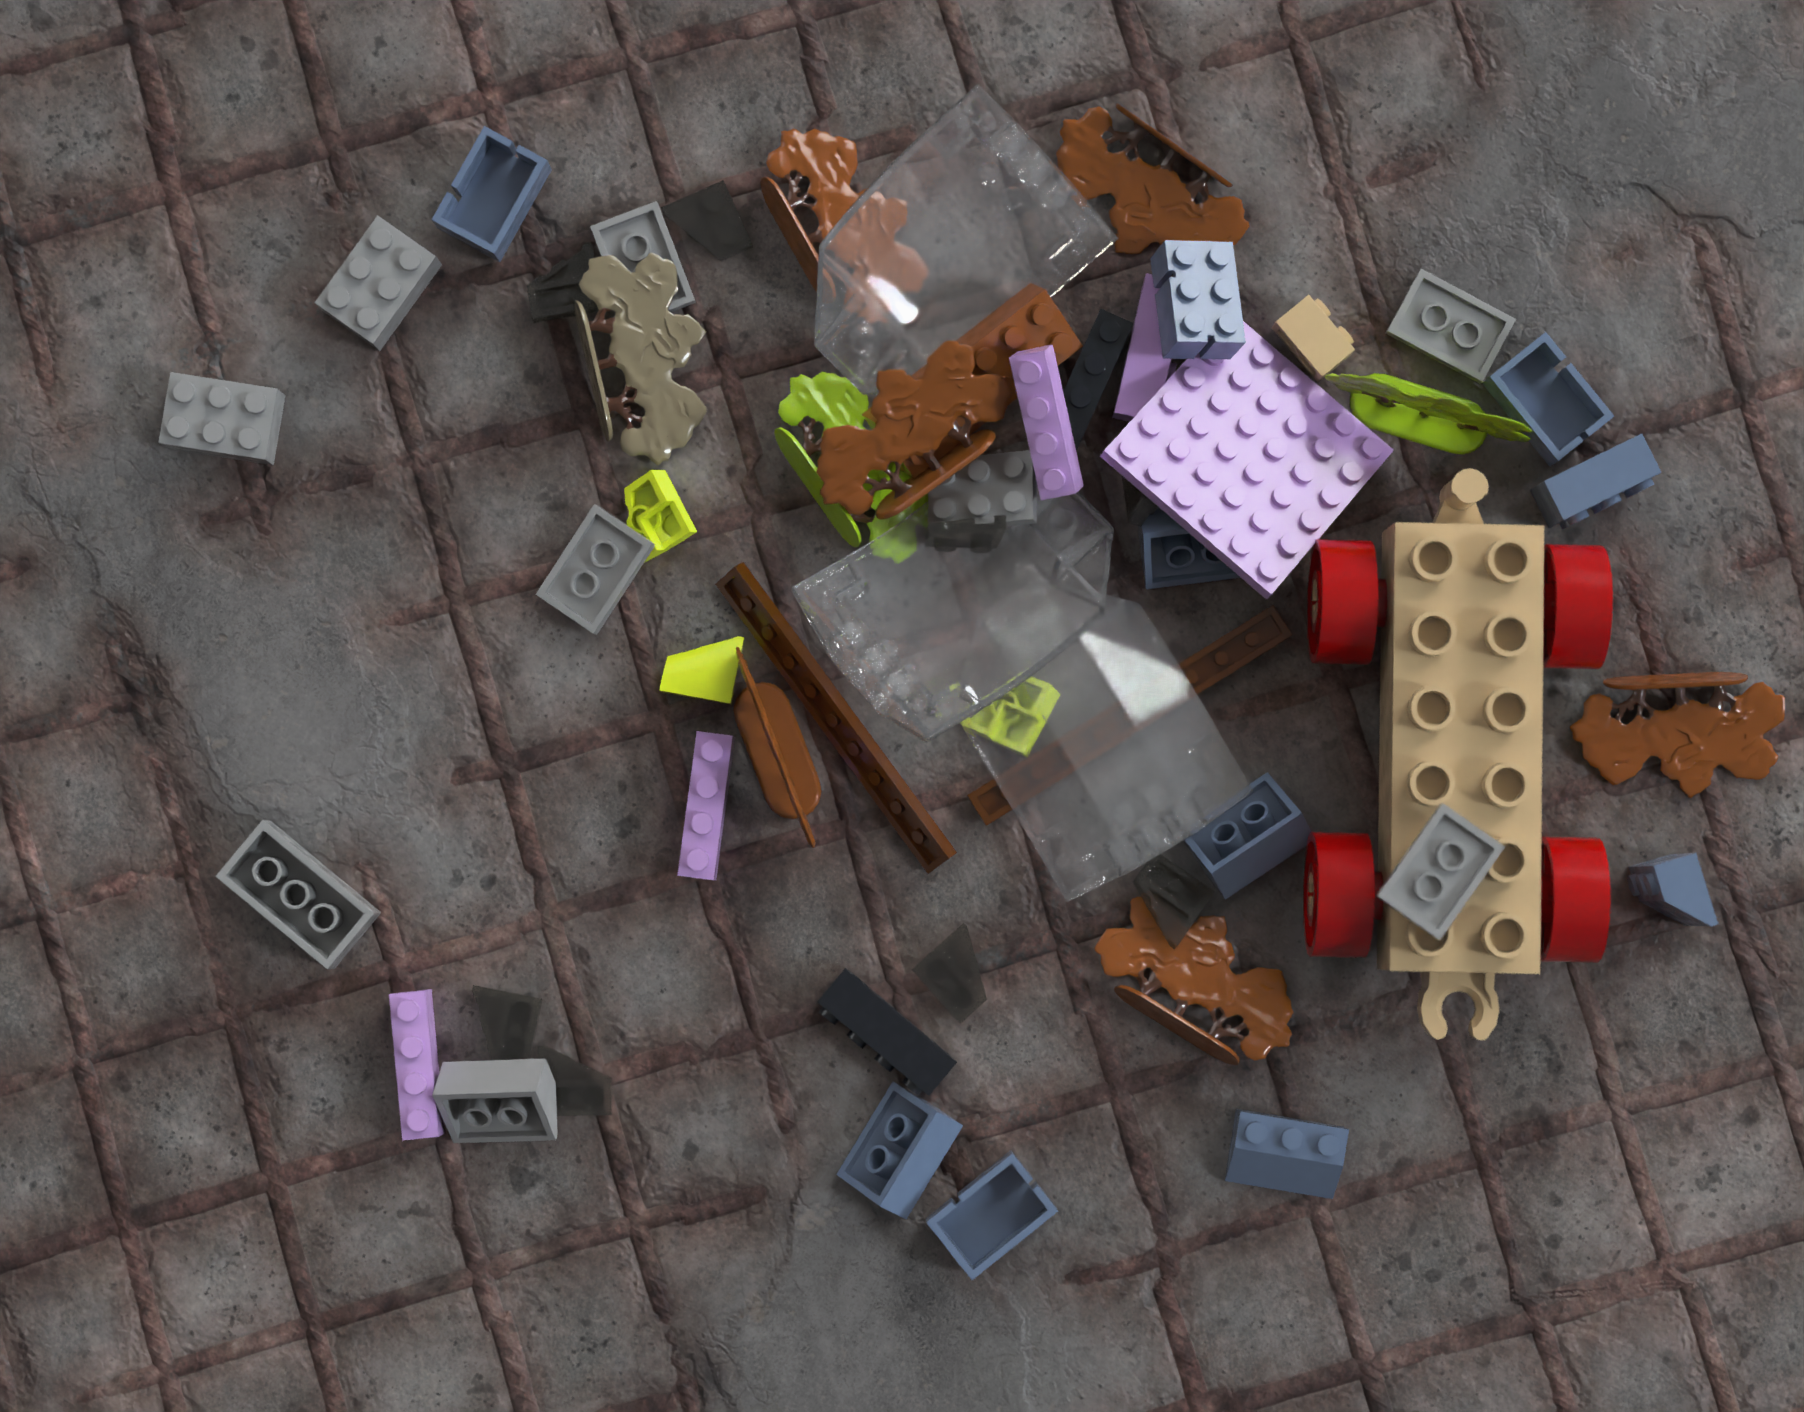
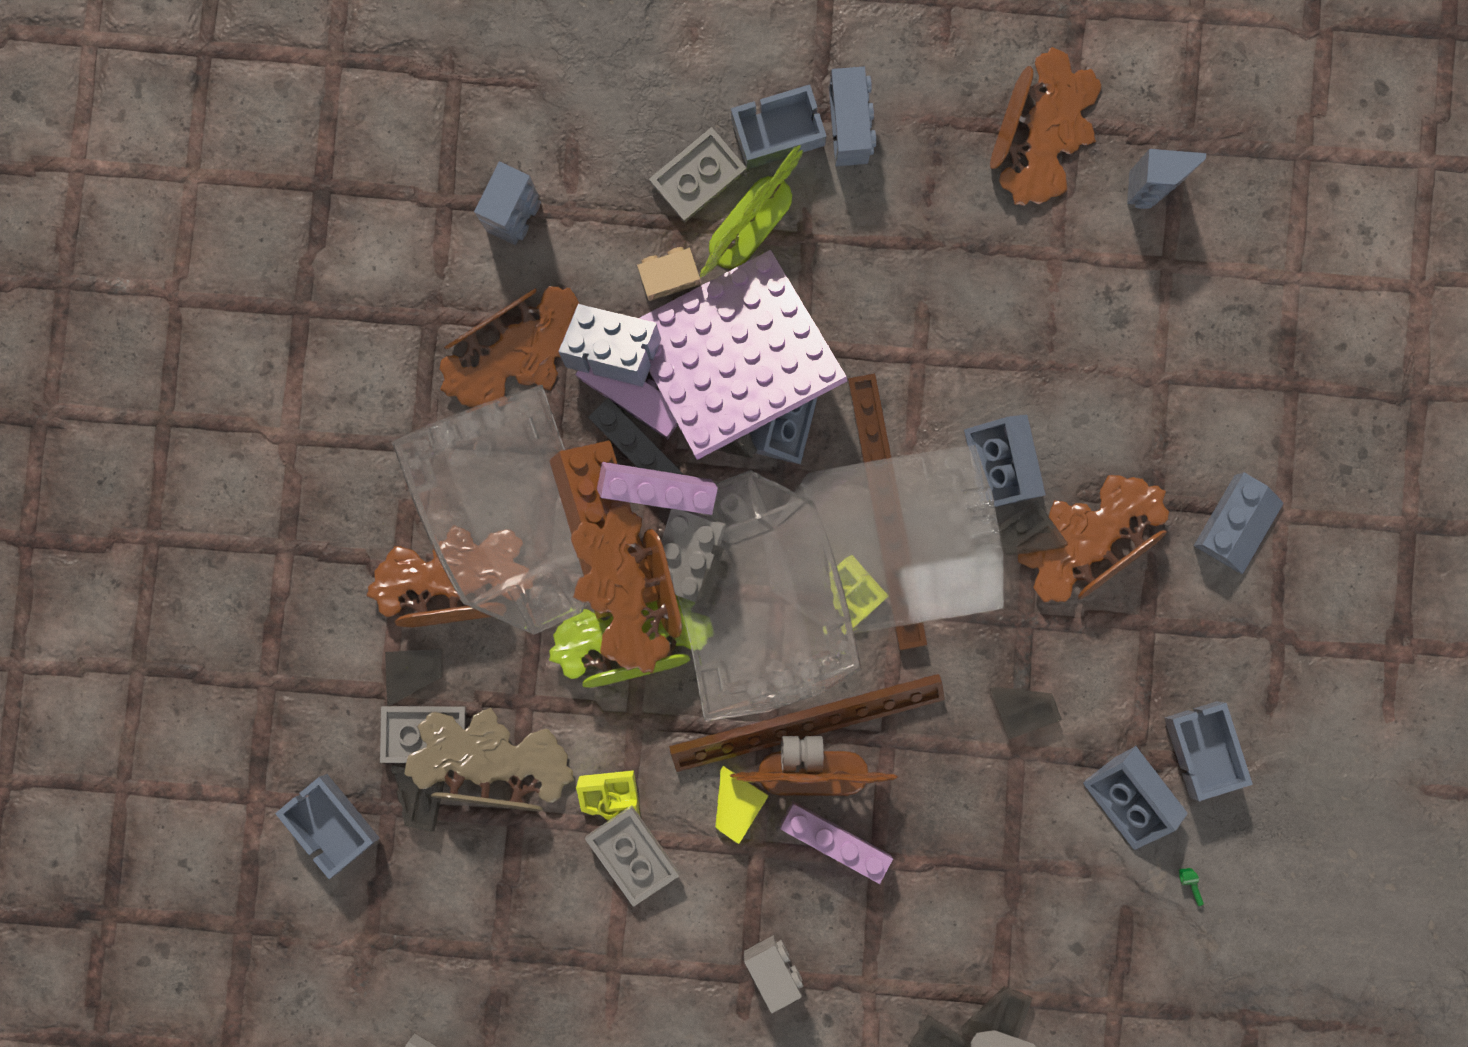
camera: 70 degrees left, 0 degrees up
(378, 283) = (360, 935): light grey brick -> none
(522, 790) = (772, 973): none -> light grey brick
(795, 724) = (802, 754): none -> light grey wheel
(829, 1254) = (1189, 877): none -> green hand
(887, 1032) = (1047, 774): black brick -> none
(1320, 110) = (508, 204): none -> sand blue piece
(1440, 871) = (1101, 334): light grey plate -> none
(1462, 659) = (1090, 315): tan piece -> none

